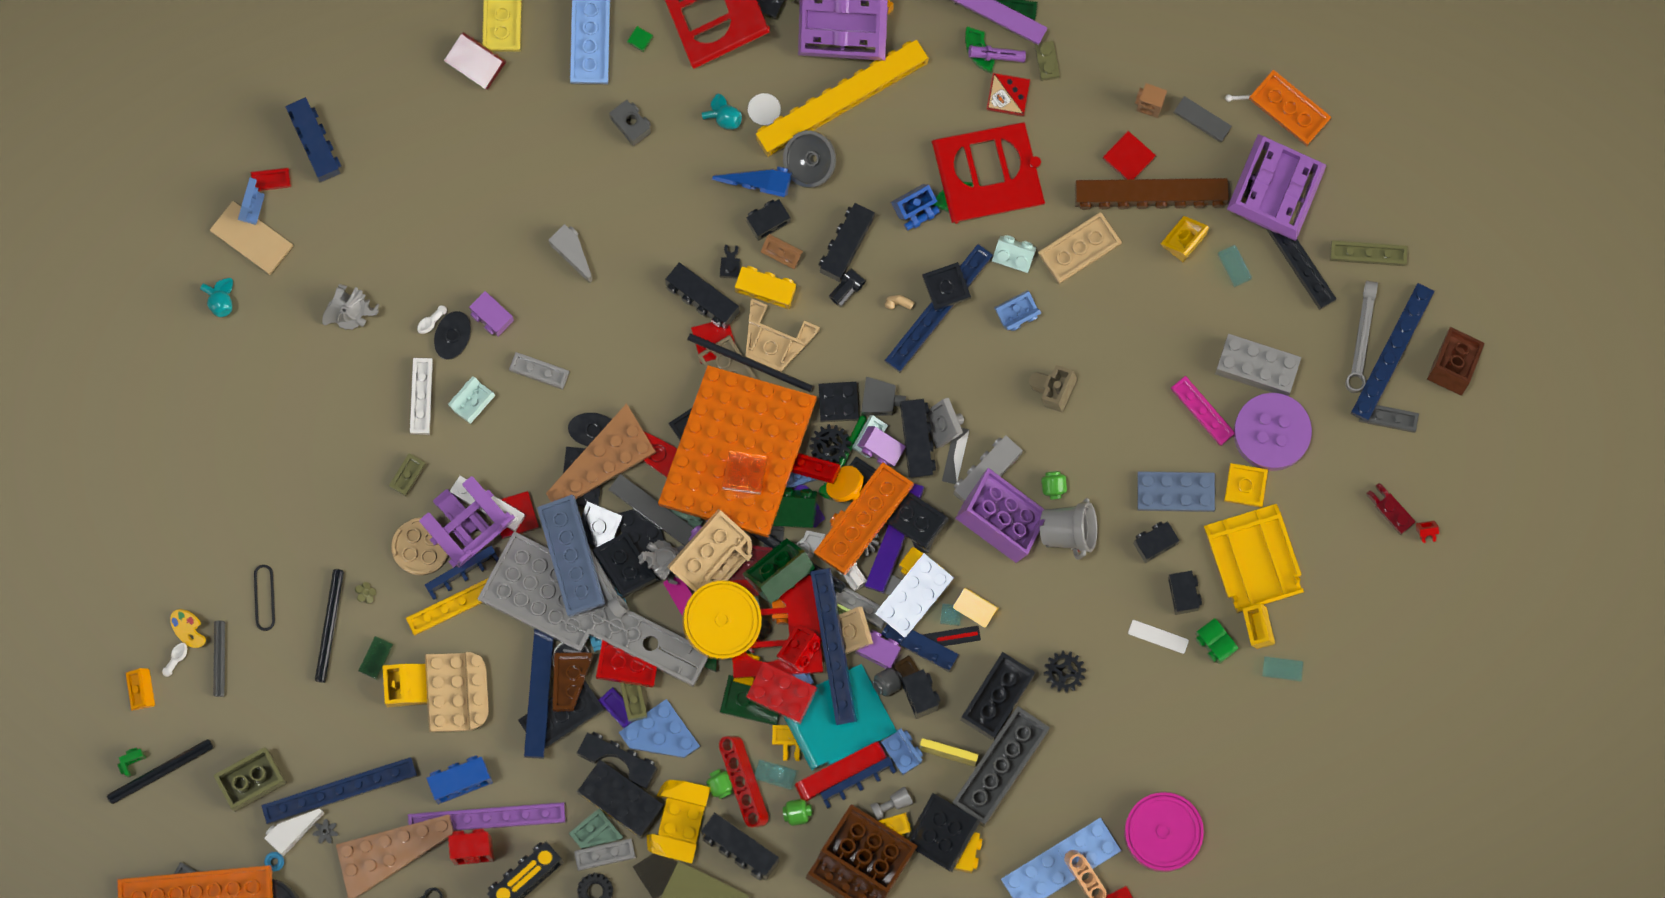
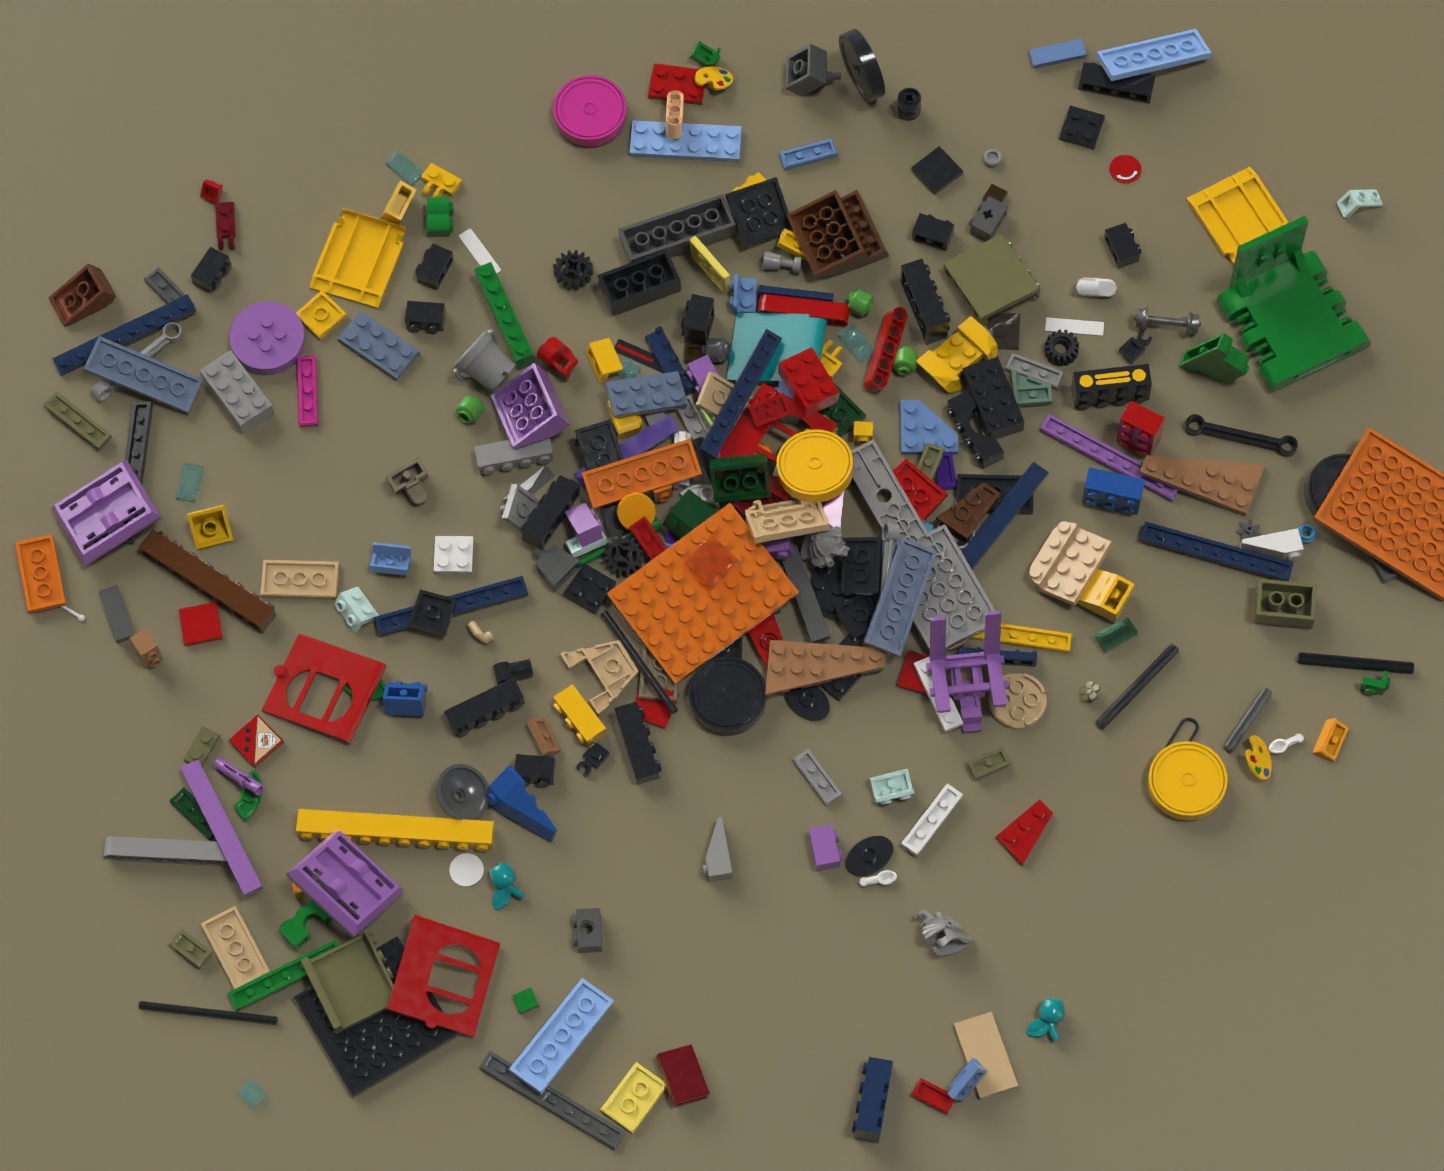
camera: 140 degrees left, 10 degrees down
(234, 568) = (1187, 781): none -> yellow brick
(340, 440) = (1024, 832): none -> red wing
(658, 384) = (727, 695): none -> black brick
(709, 692) = (862, 432): none -> yellow plate
(971, 353) = (453, 554): none -> white plate
(1023, 580) = (553, 352): none -> red piece
(1089, 587) = (504, 316): none -> green brick
(1242, 679) = (440, 179): none -> yellow hinge
(1345, 323) = (143, 375): none -> sand blue plate
(1368, 458) = (211, 270): none -> black brick

